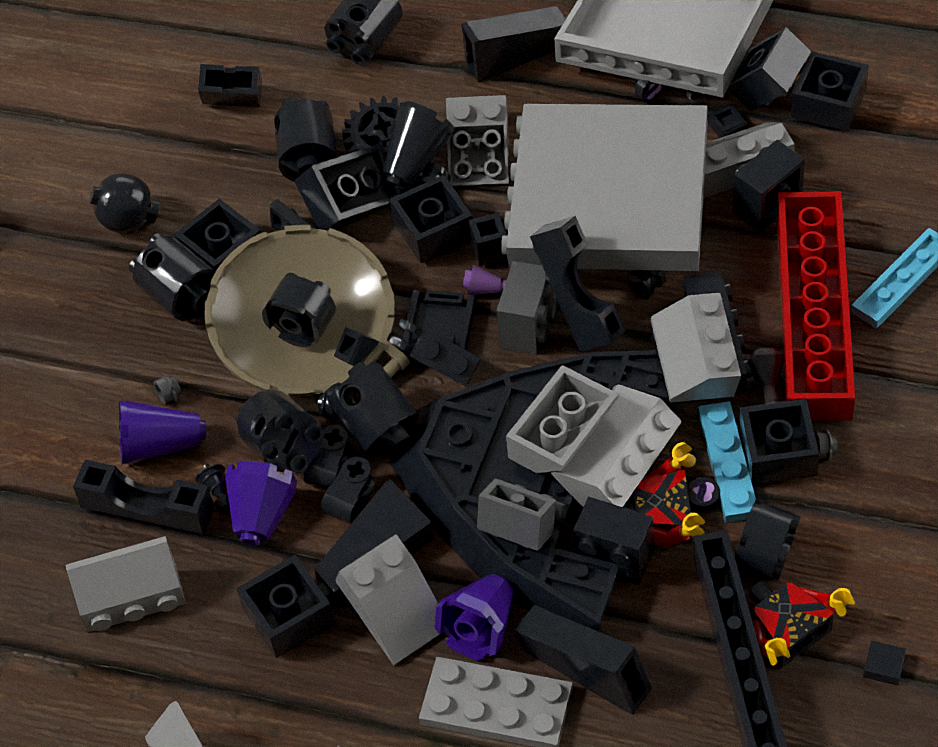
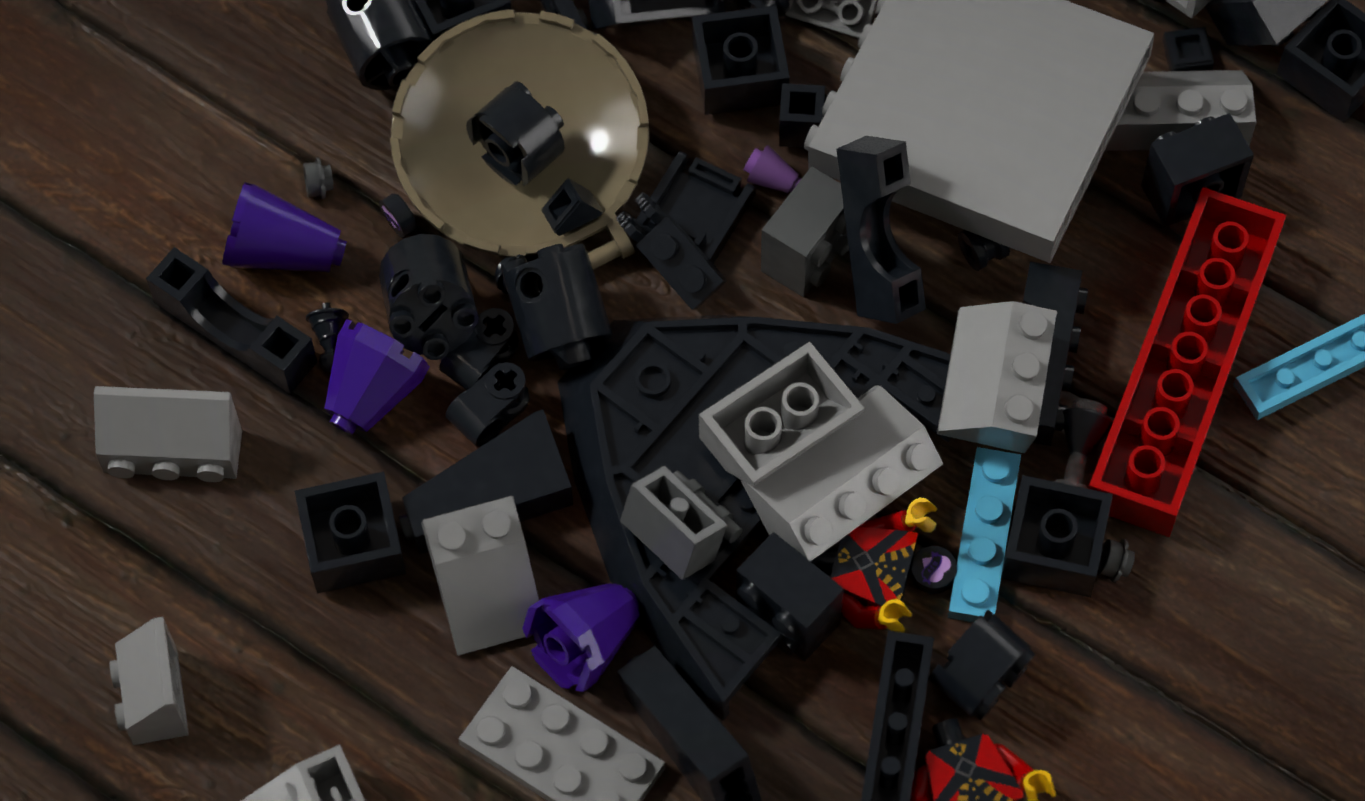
camera: 15 degrees right, 10 degrees up
(233, 392) = (398, 215): none -> black tile

